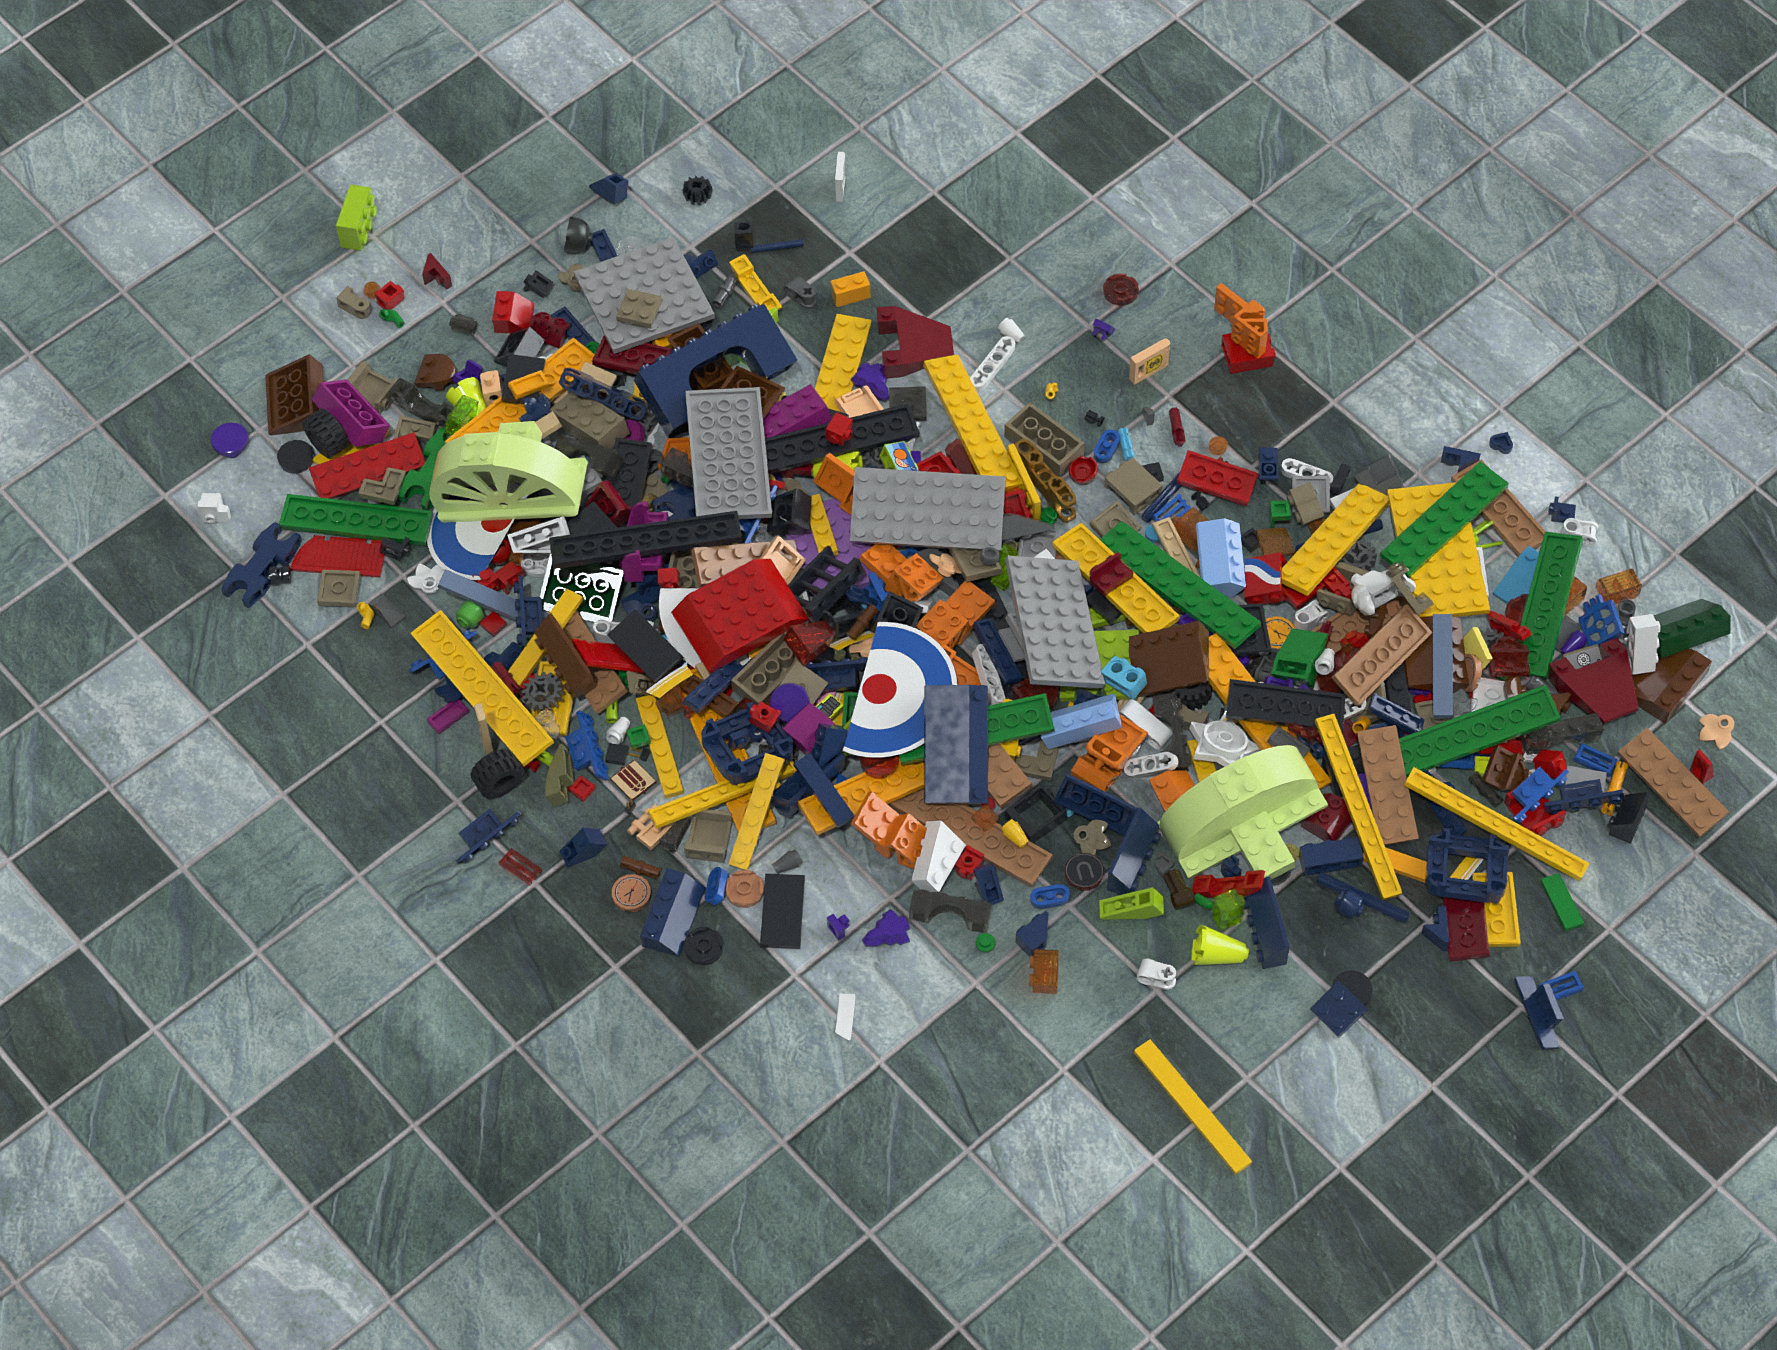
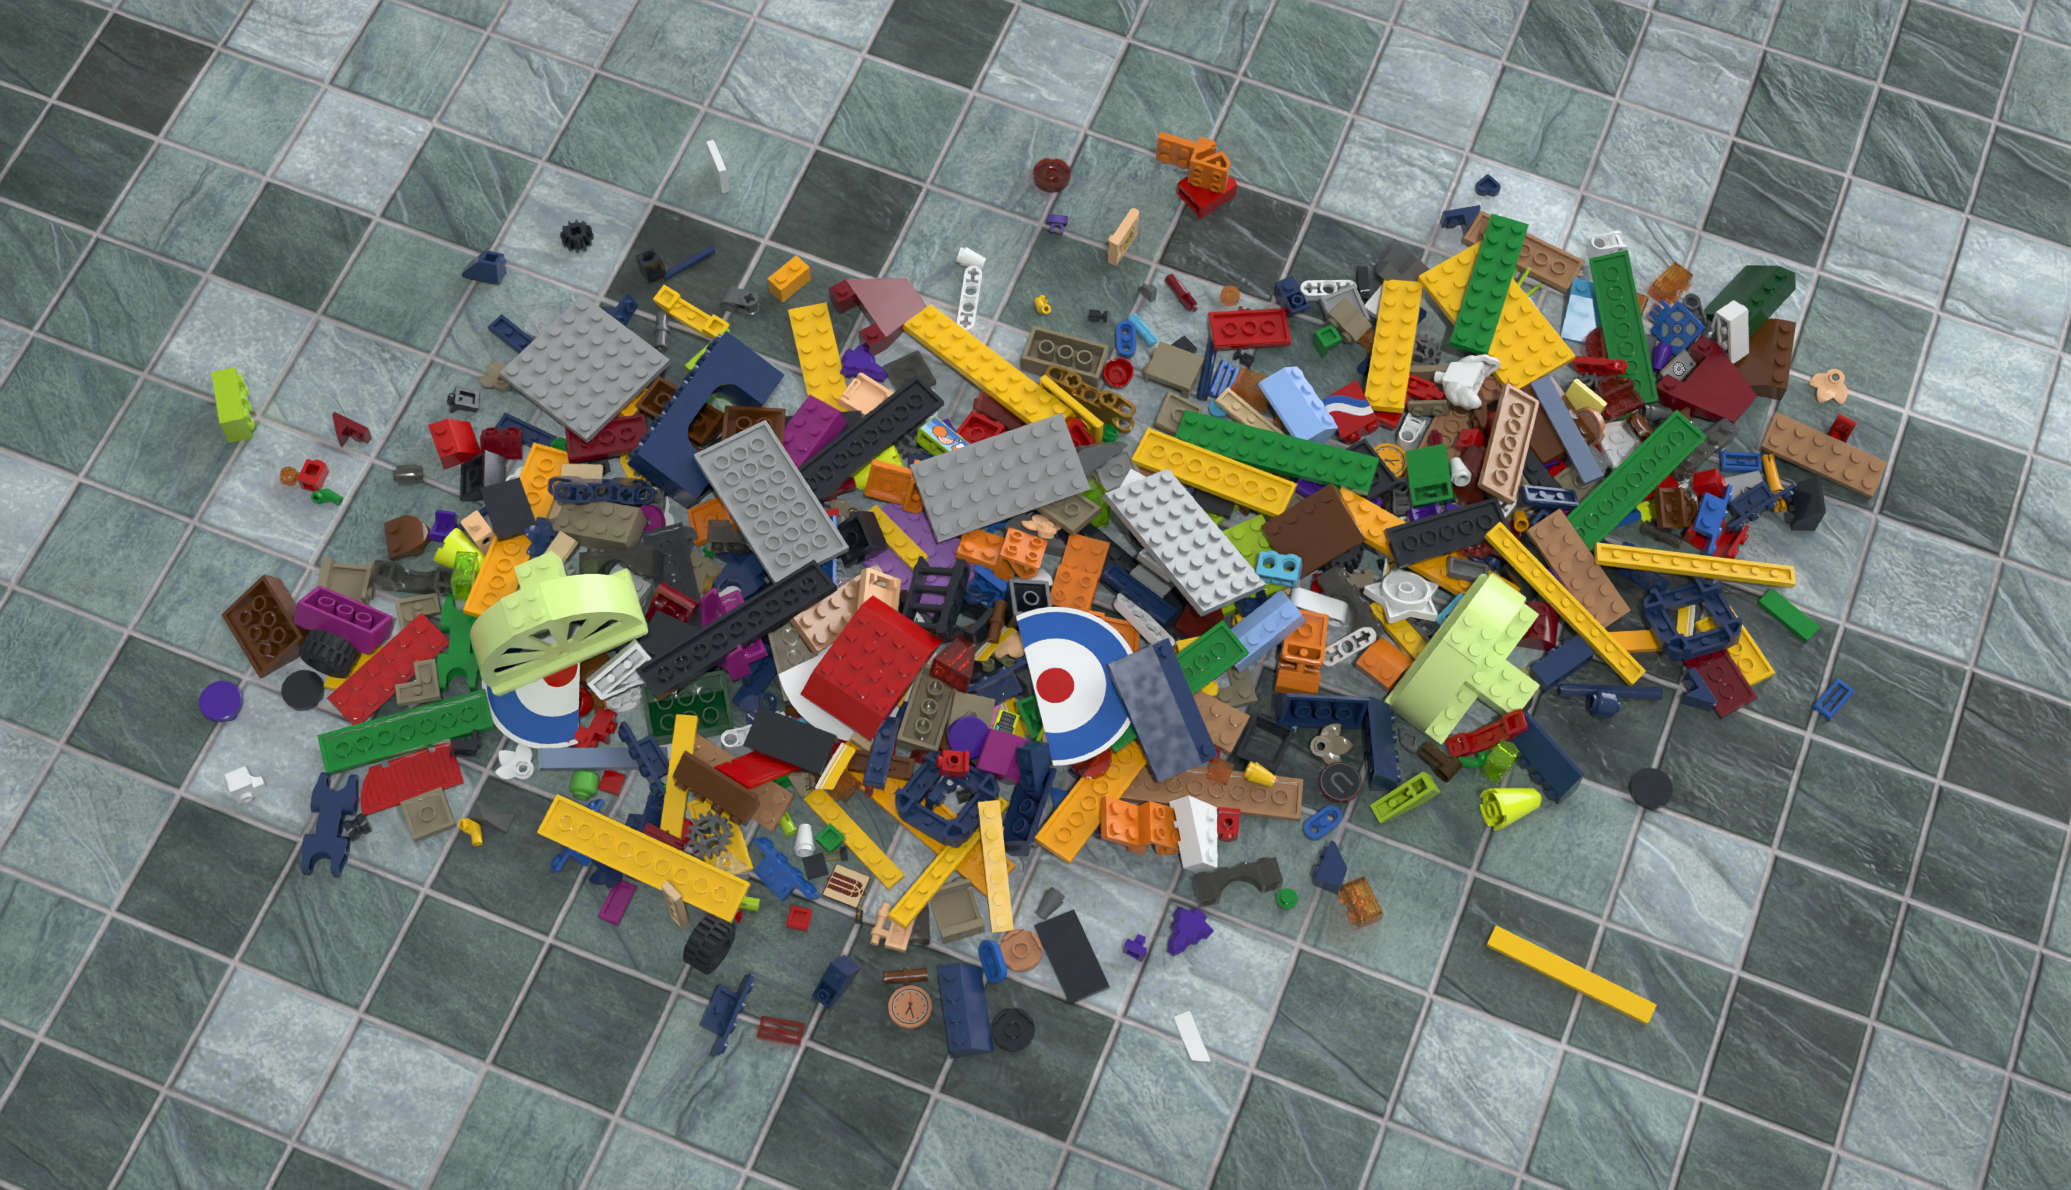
camera: 30 degrees left, 5 degrees up
(353, 304) = (277, 499): dark tan leg -> none
(528, 384) = (518, 512): light orange tile -> none
(559, 777) = (772, 918): olive slope -> none
(577, 235) = (479, 332): pearl dark grey cylinder -> none
(639, 308) = (591, 385): dark tan plate -> none
(669, 578) = (781, 660): red brick -> none
(823, 790) = (1057, 815): dark blue tile -> none
(839, 429) = (867, 430): red brick -> none
(988, 884) = (1258, 838): dark blue slope -> none
(989, 556) = (1082, 500): dark grey tile -> none
(1110, 574) = (1208, 470): dark red bracket -> none
(1155, 974) = (1463, 857): white piece -> none
(1229, 867) = (1477, 718): dark blue plate -> none
(1250, 540) = (1314, 376): black tile -> none
(1275, 541) = (1336, 370): clear orange piece -> none
(1338, 1009) = (1651, 814): dark blue plate -> none
(1418, 603) = (1487, 359): dark tan panel -> none
(1541, 1009) = (1832, 729): dark blue bracket -> none
(1561, 511) = (1578, 232): dark blue bracket -> none

